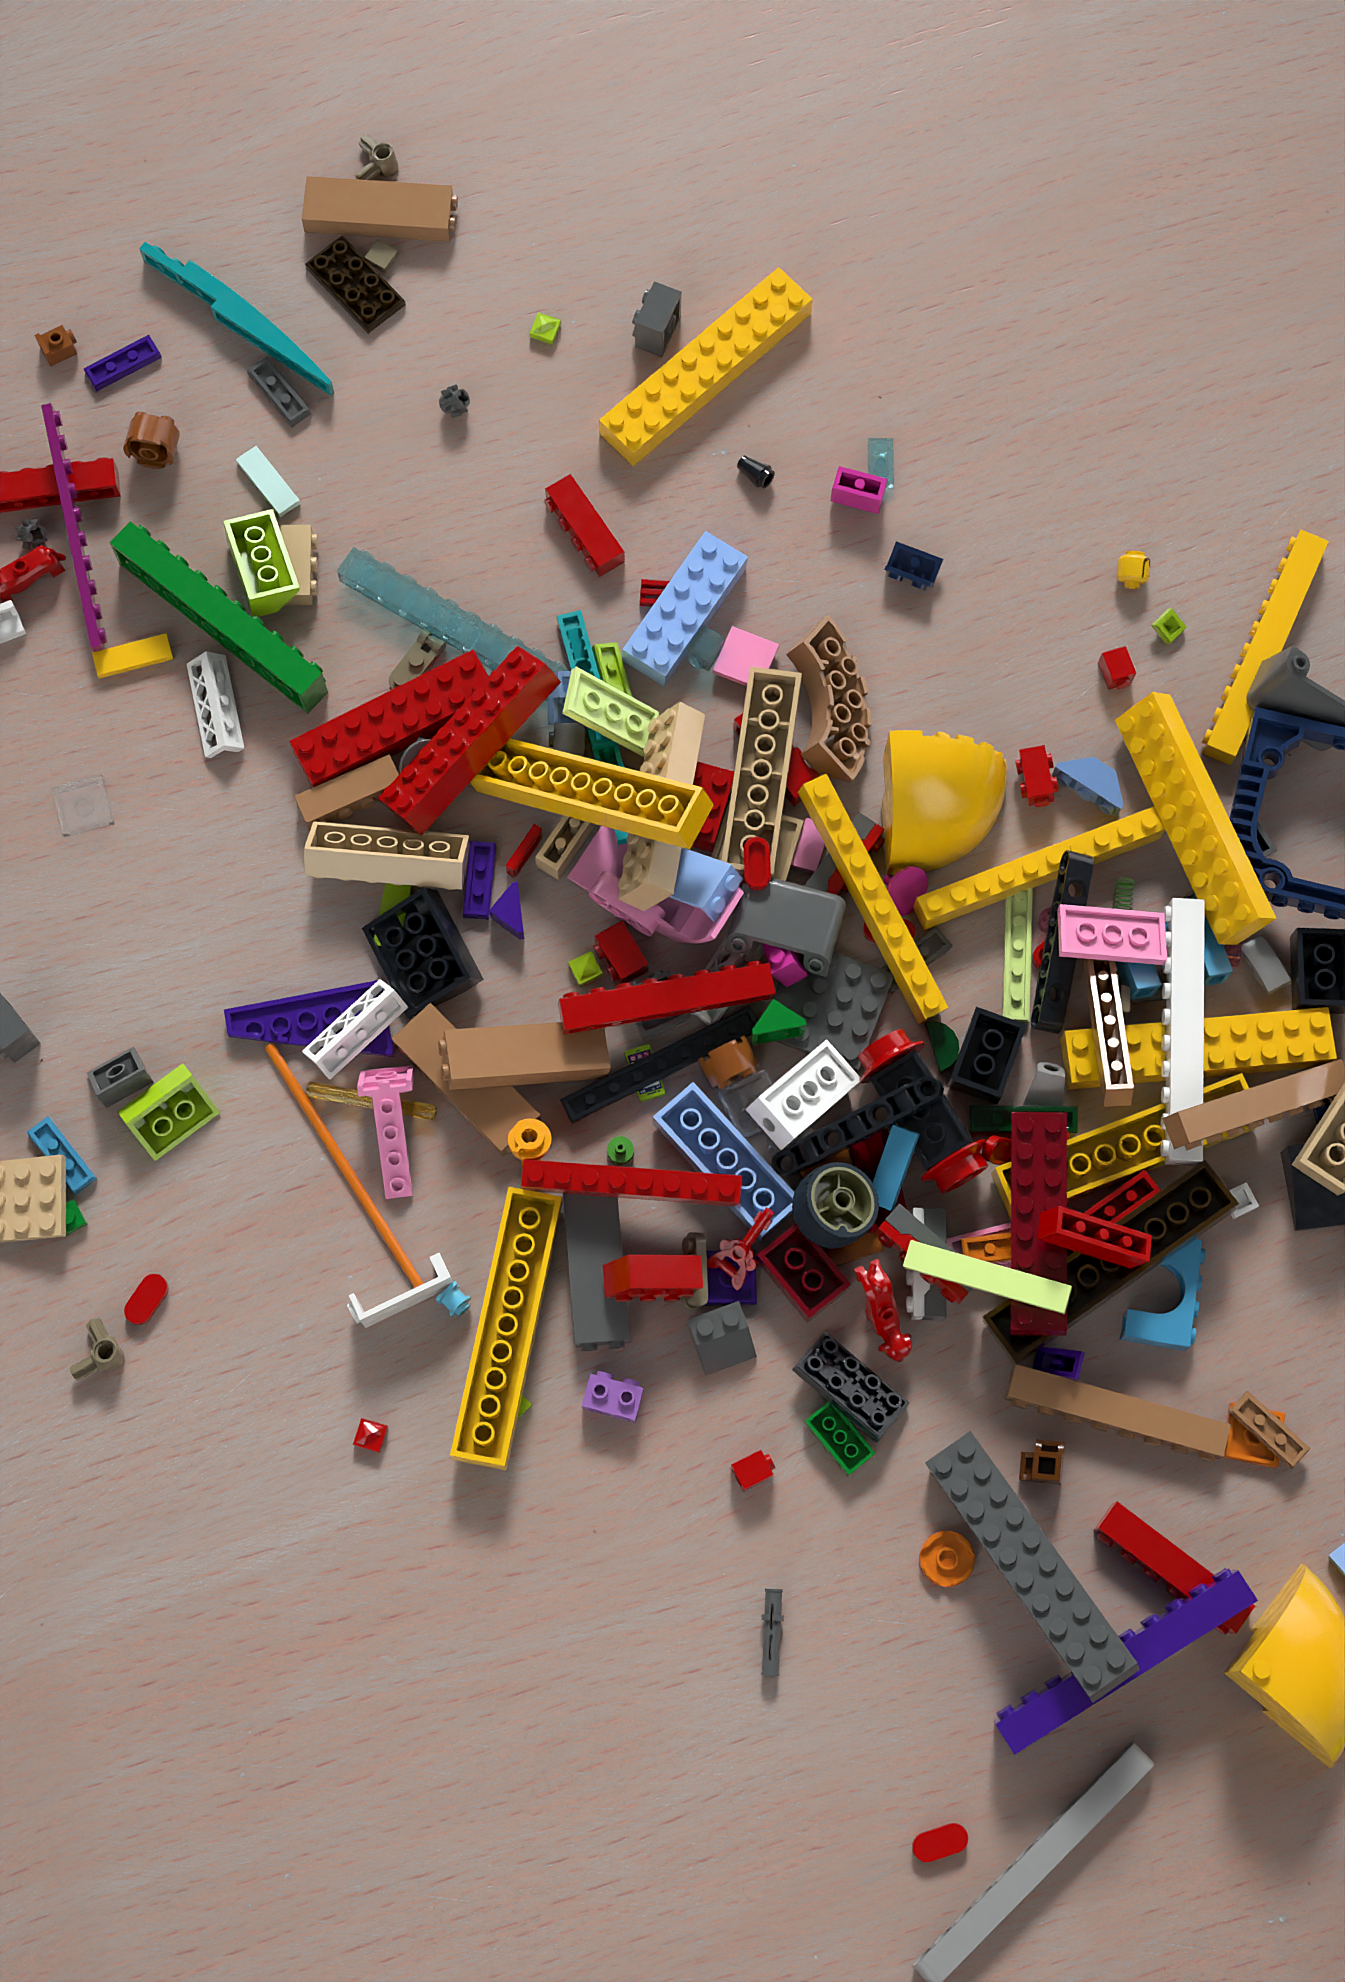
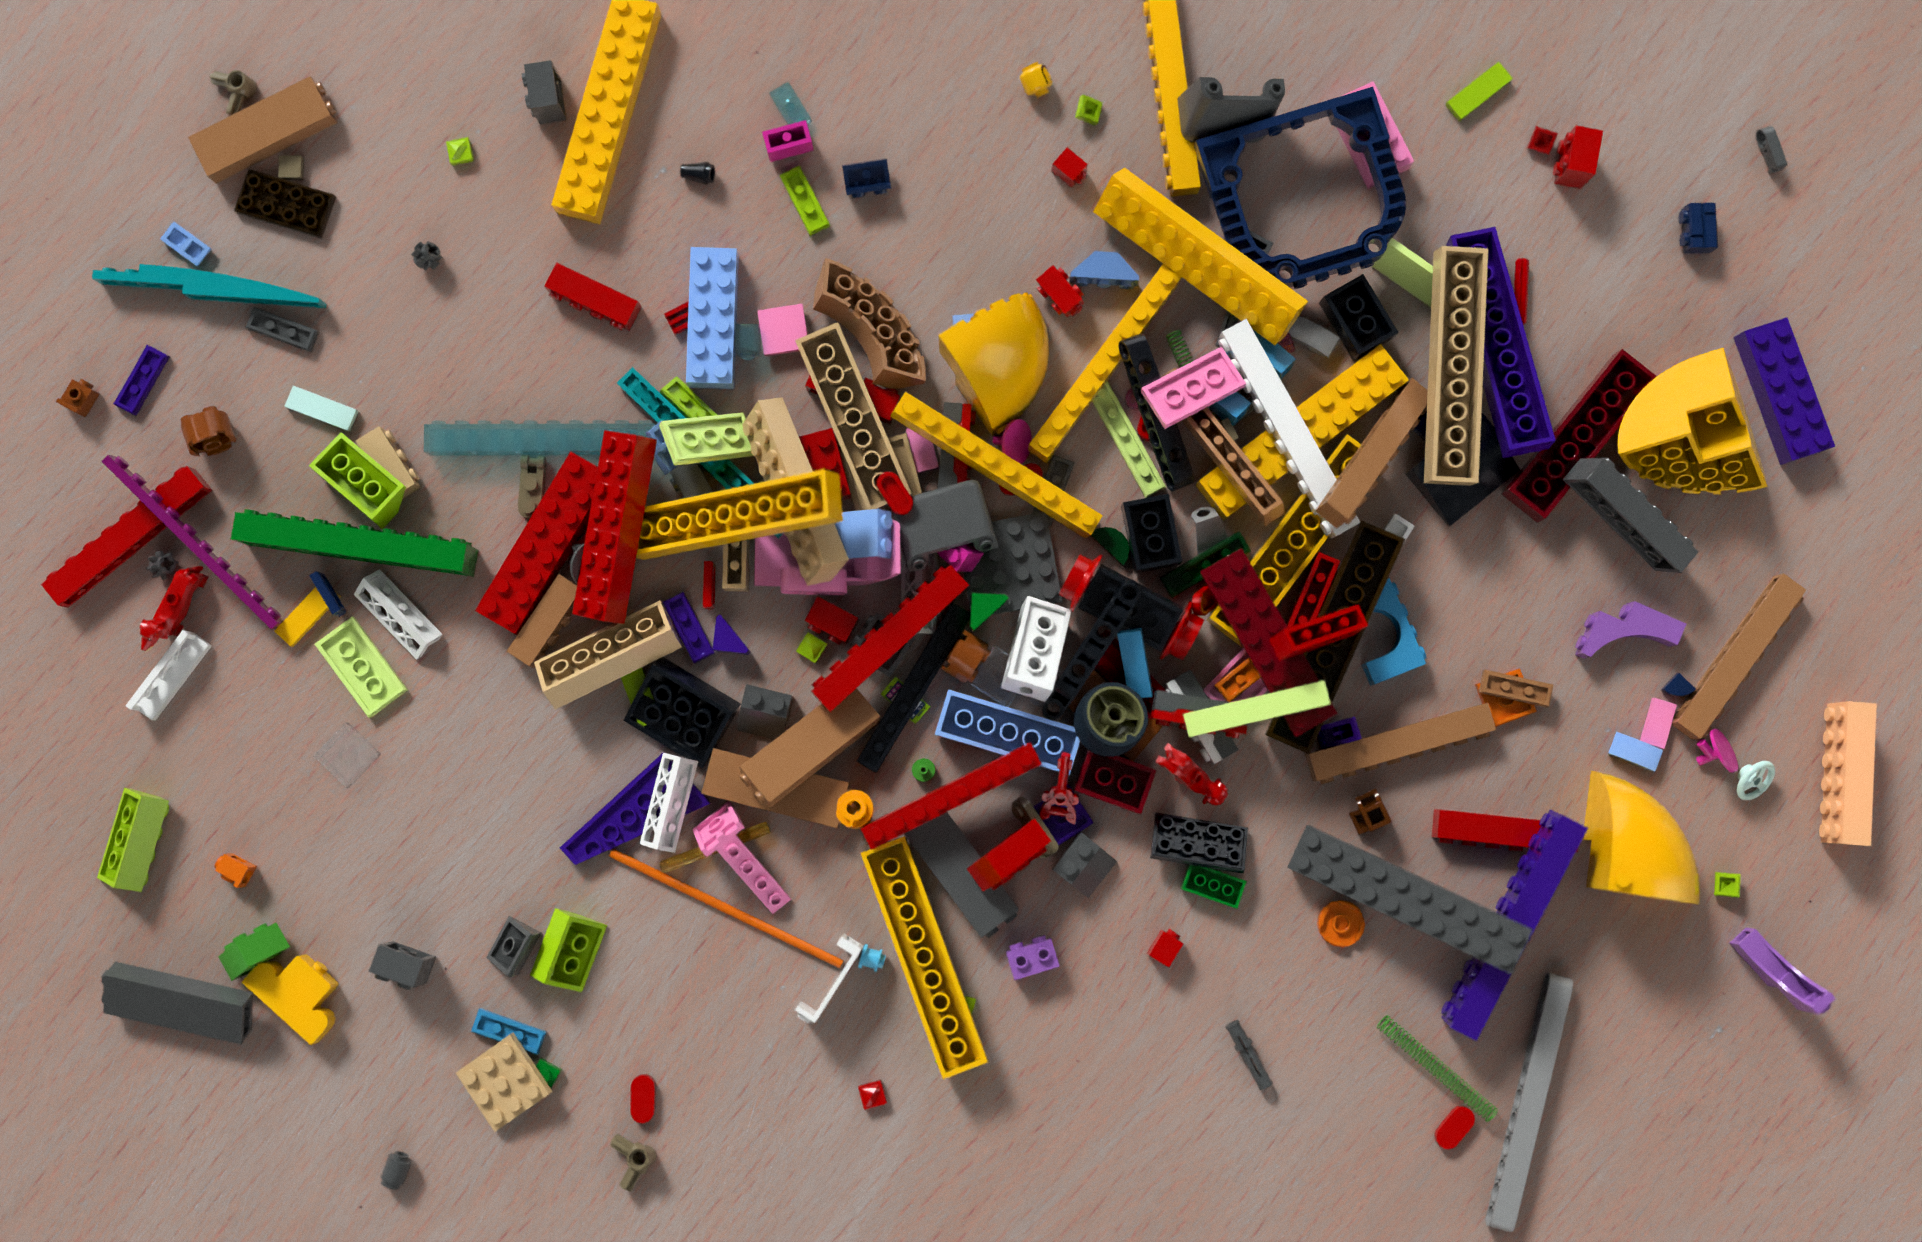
camera: 30 degrees left, 10 degrees up
(149, 733) = (361, 667): none -> yellowish green tile
(164, 647) = (328, 593): none -> dark blue tile
(242, 267) = (185, 244): none -> light blue slope
(501, 998) = (764, 712): none -> dark grey slope
(841, 554) = (804, 200): none -> lime tile
(958, 1770) = (1387, 1016): none -> bright green piece

